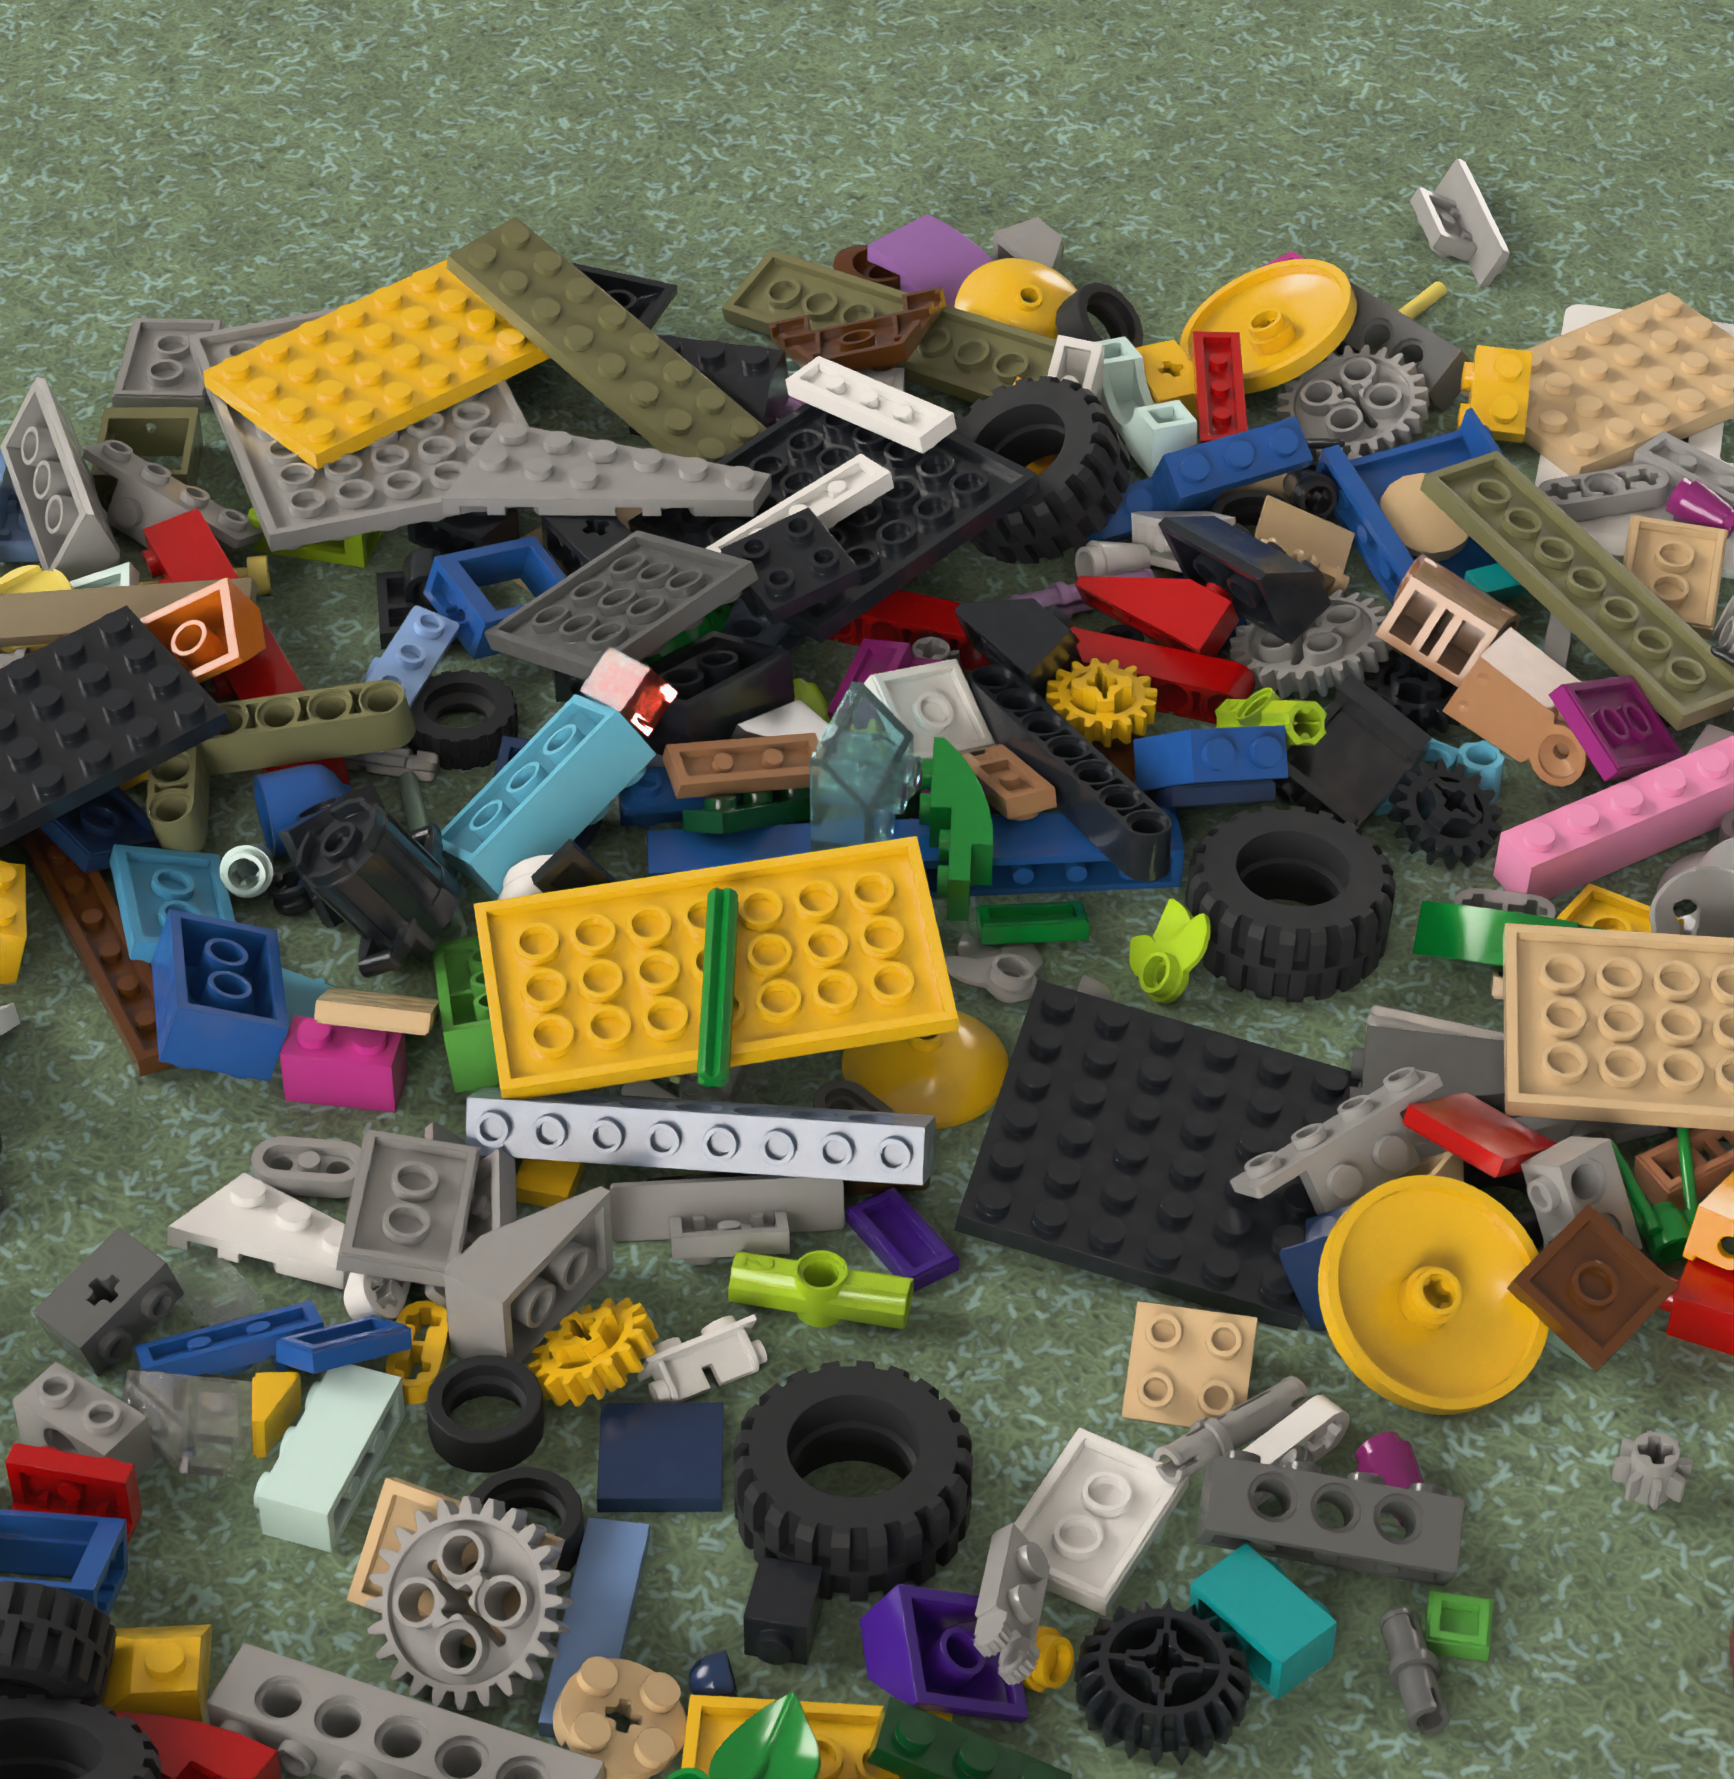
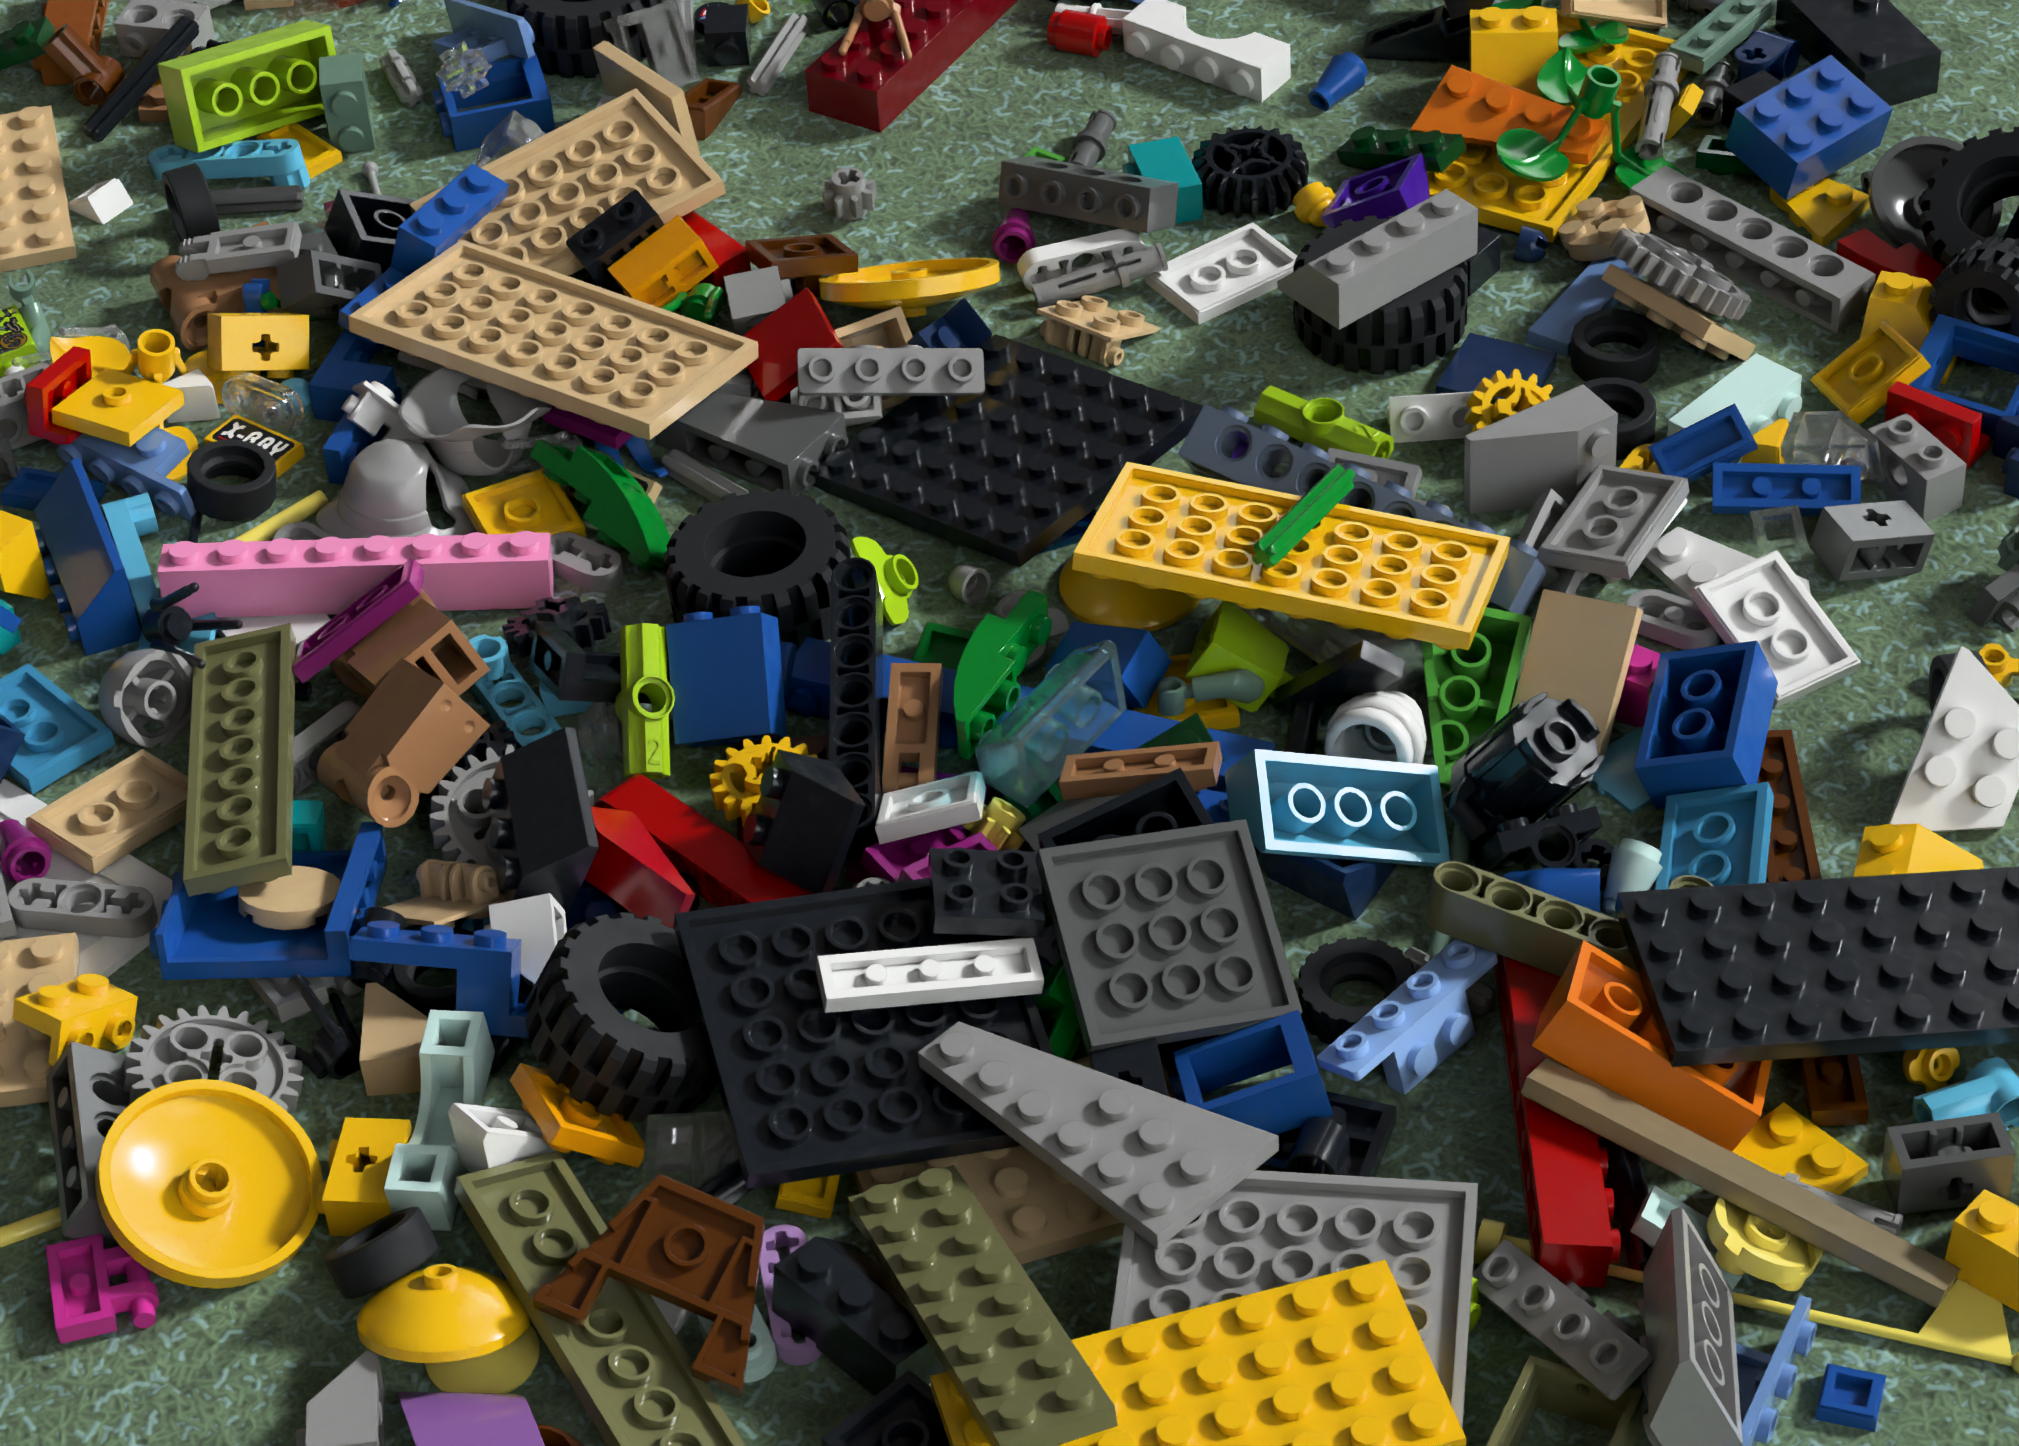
camera: 150 degrees left, 0 degrees up
(172, 1539) = (1867, 369): none -> yellow plate
(189, 1167) = (1775, 608): none -> white tile
(630, 689) = (1226, 787): clear red brick -> none
(843, 1408) = (1387, 260): none -> light grey slope
(871, 404) = (765, 1080): white plate -> none
(1011, 1603) = (1325, 193): light grey hinge -> none
(1218, 385) = (355, 1076): red plate -> none

